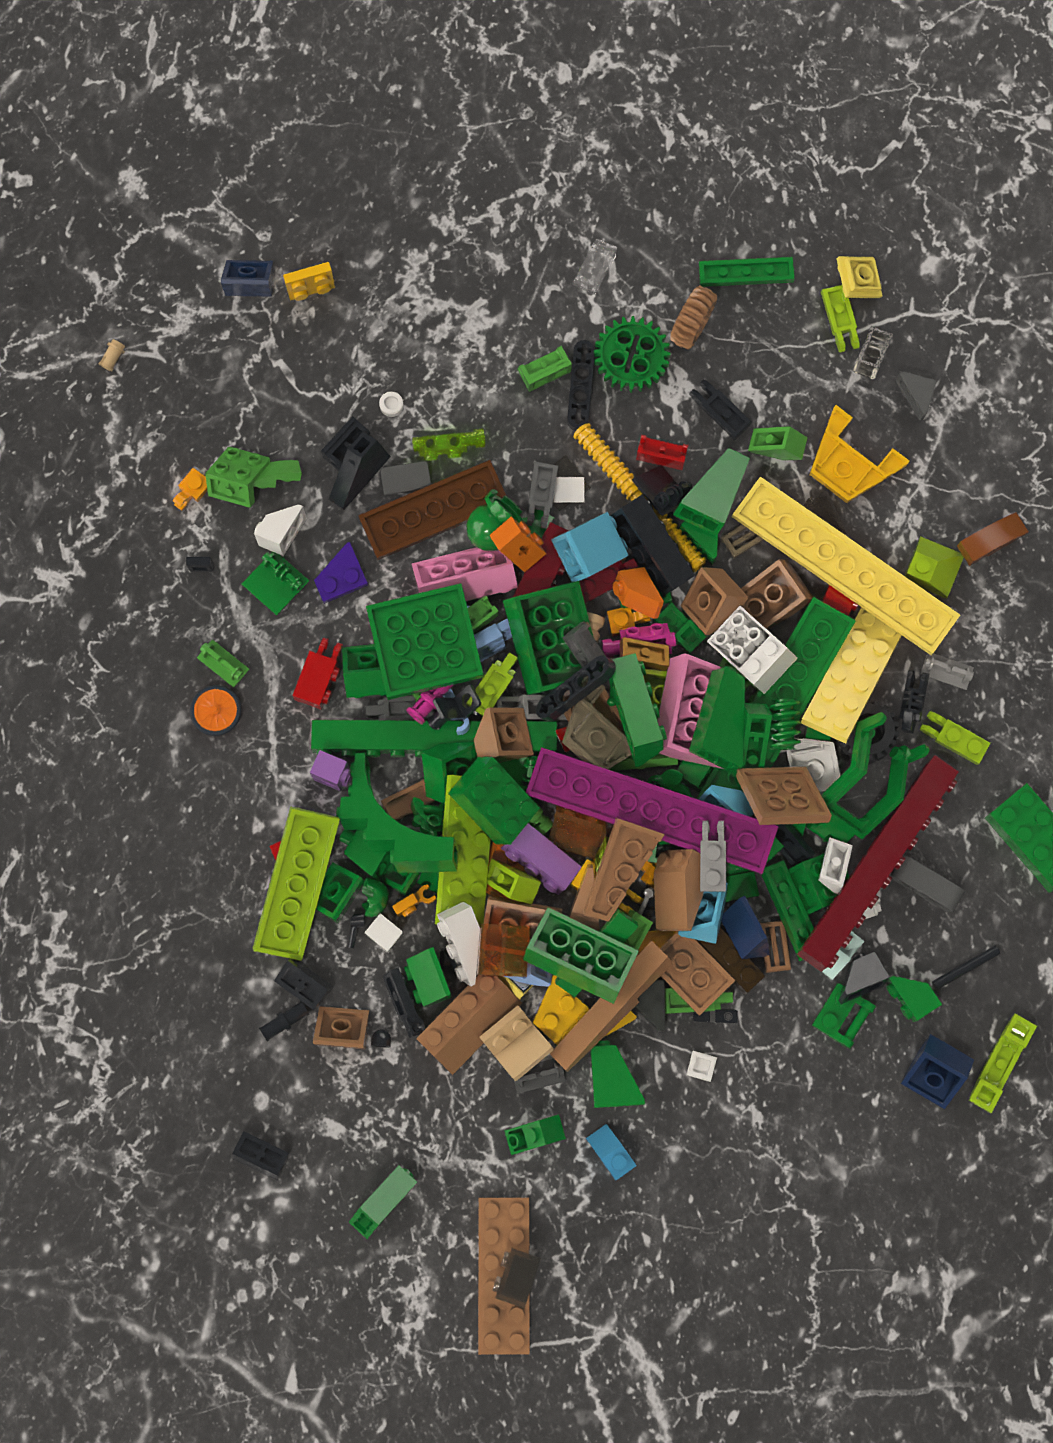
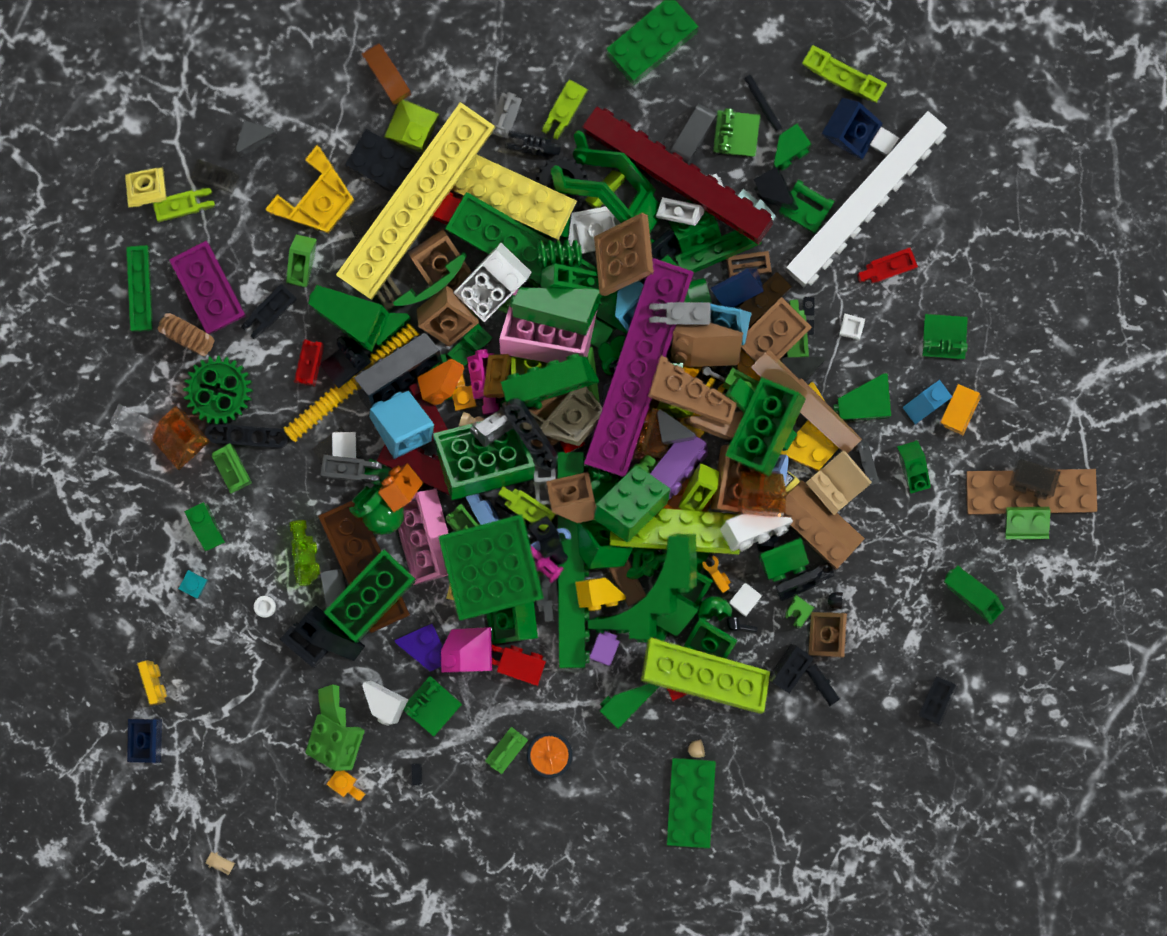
camera: 80 degrees left, 5 degrees up
(155, 868) = (691, 803): none -> green plate
(215, 875) = (696, 749): none -> tan hinge
(268, 793) = (623, 705): none -> green slope
(334, 619) = (467, 650): none -> dark pink slope
(371, 995) = (802, 610): none -> bright green hinge
(395, 763) = (596, 592): none -> yellow slope
(397, 512) = (370, 596): none -> green brick
(417, 328) = (193, 584): none -> teal plate
(466, 1269) = (1027, 522): none -> bright green plate
(481, 339) = (204, 526): none -> green slope
(579, 848) = (672, 430): none -> dark grey slope
(580, 312) = (179, 437): none -> clear orange slope
(602, 1192) = (960, 409): none -> light orange hinge
(689, 1176) = (945, 336): none -> green hinge
(747, 343) = (207, 287): none -> magenta plate
(766, 605) = (410, 296): none -> green slope
(772, 1111) = (889, 266): none -> red hinge
(853, 1086) = (865, 200): none -> white brick
(866, 787) = (613, 180): none -> lime slope
(893, 530) = (381, 161): none -> black plate
(922, 1110) = (884, 141): none -> white tile
(930, 935) = (736, 133): none -> bright green hinge

